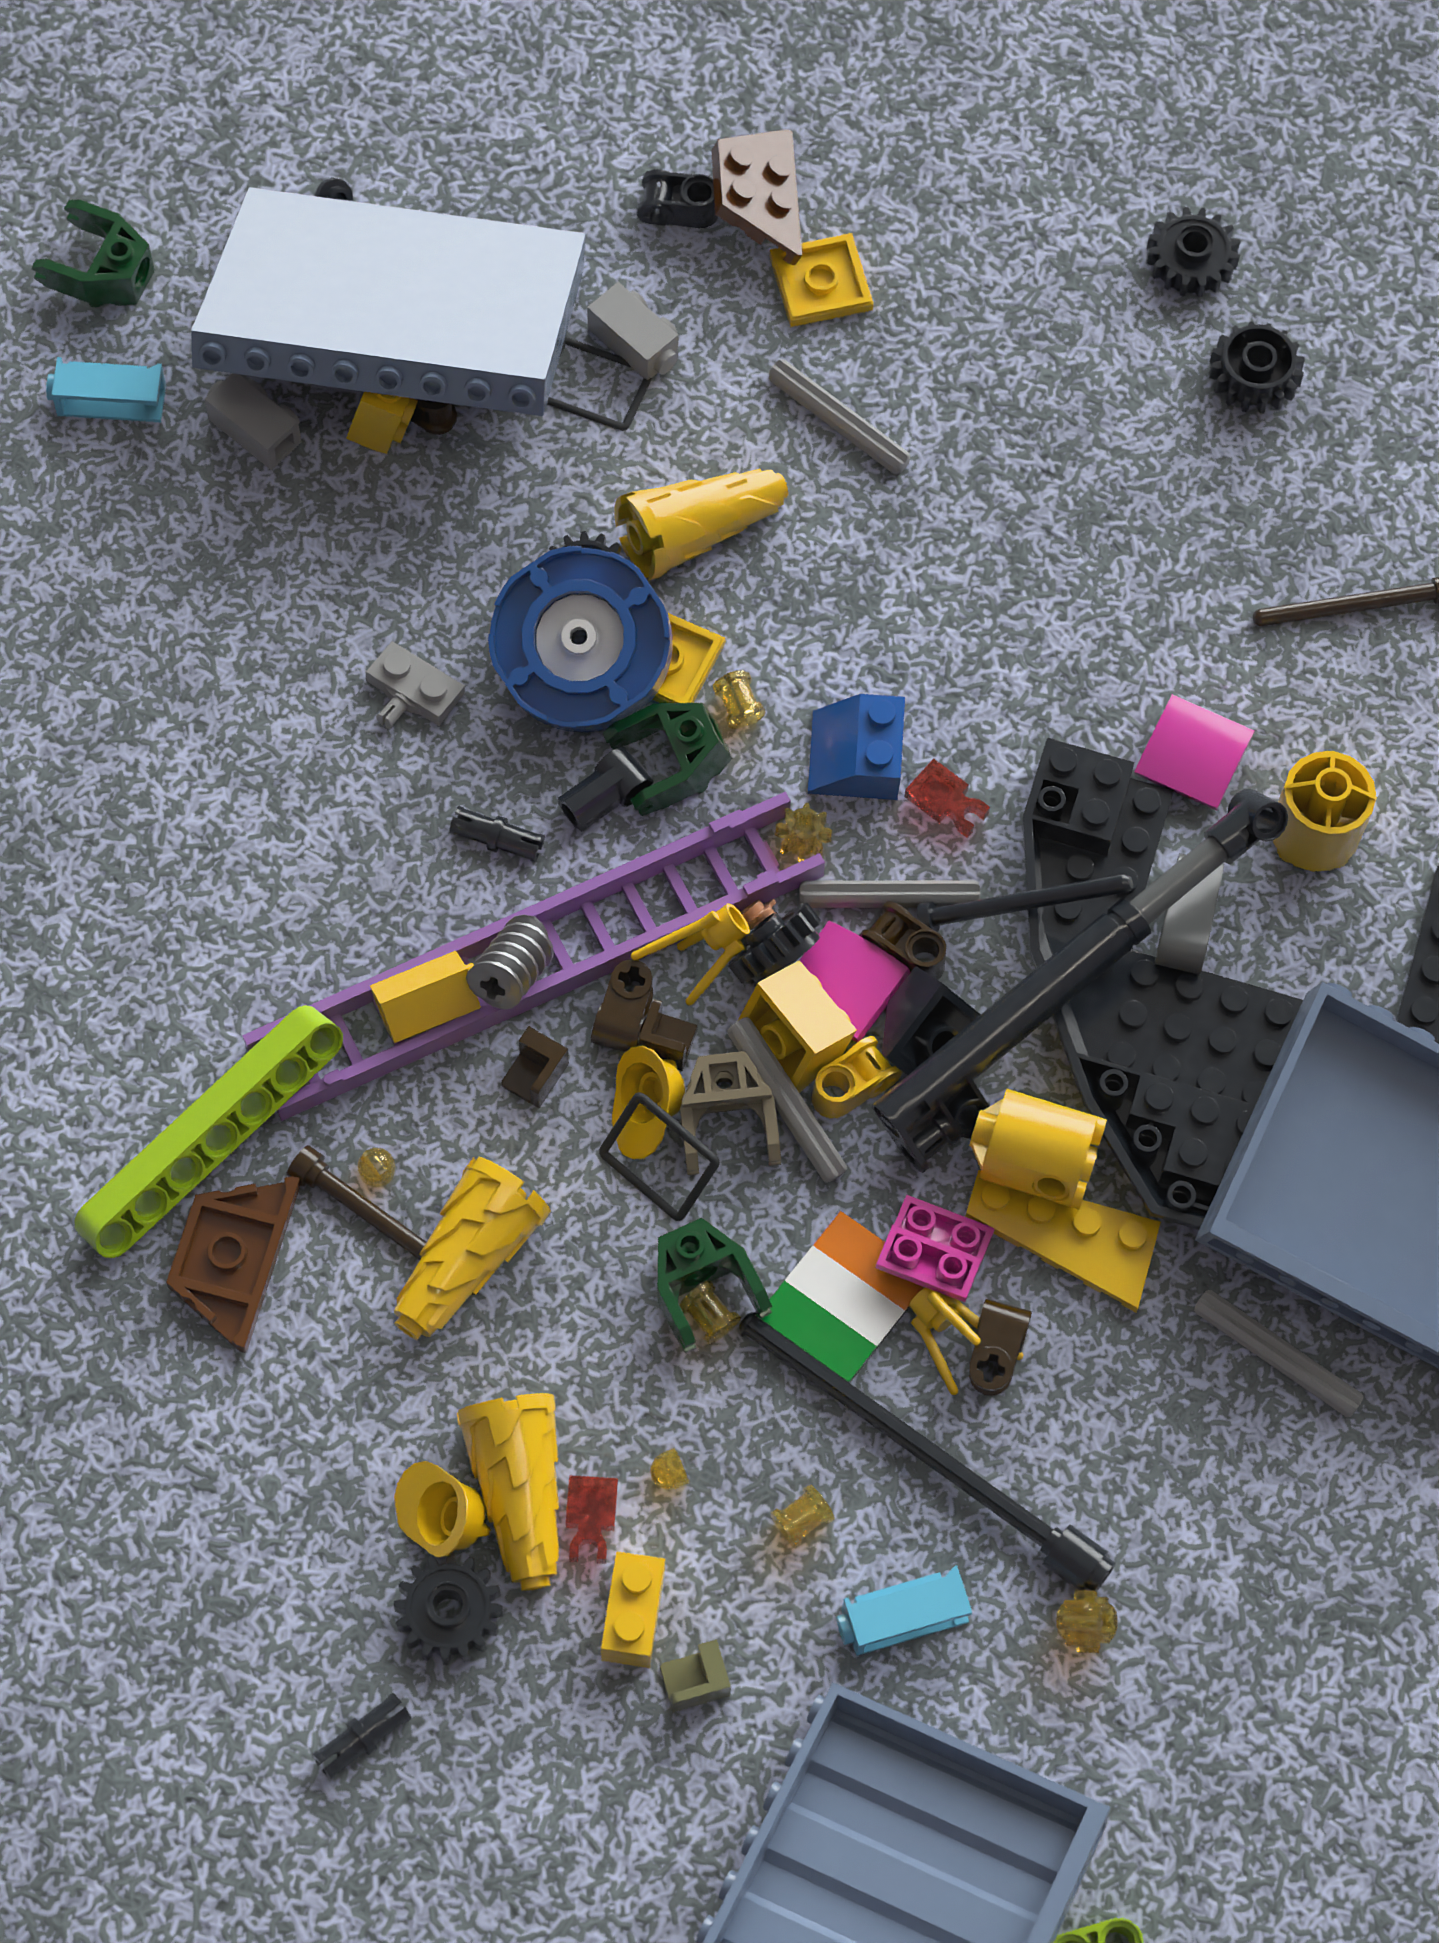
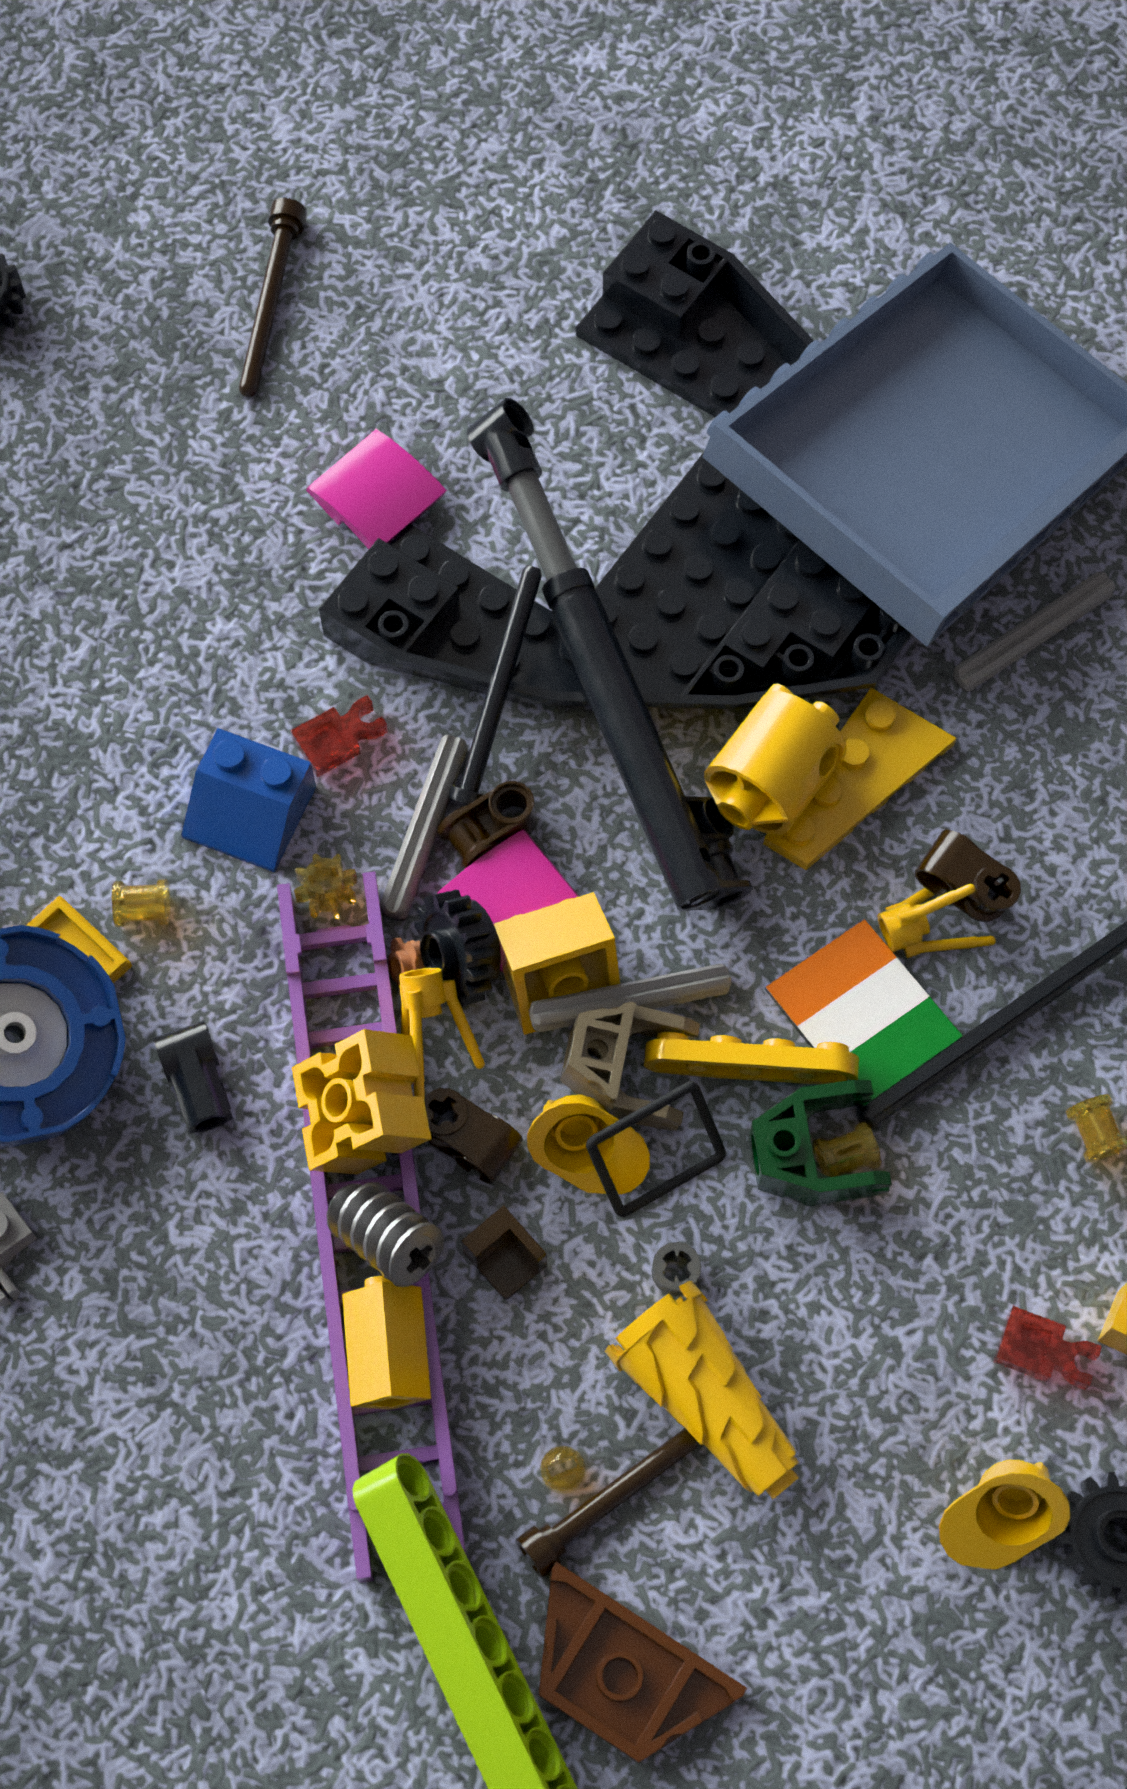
camera: 70 degrees left, 0 degrees up
(496, 834) = (201, 1211): black pin -> none
(514, 1459) = (972, 1411): yellow cone -> none
(570, 1219) = (659, 1267): none -> dark grey bush
(612, 910) = (361, 1102): none -> yellow brick
(667, 1035) = (516, 1099): dark brown panel -> none
(668, 1470) = (1012, 1250): clear yellow hinge -> none
(694, 740) = (152, 969): dark green piece -> none
(769, 1229) = (731, 1059): none -> yellow plate
(859, 1073) = (630, 922): yellow piece -> none
(922, 1020) = (594, 829): black slope -> none
(935, 1248) = (842, 905): dark pink slope -> none
(1189, 925) = (588, 548): dark grey beam -> none
(1327, 810) = (494, 365): yellow cylinder -> none

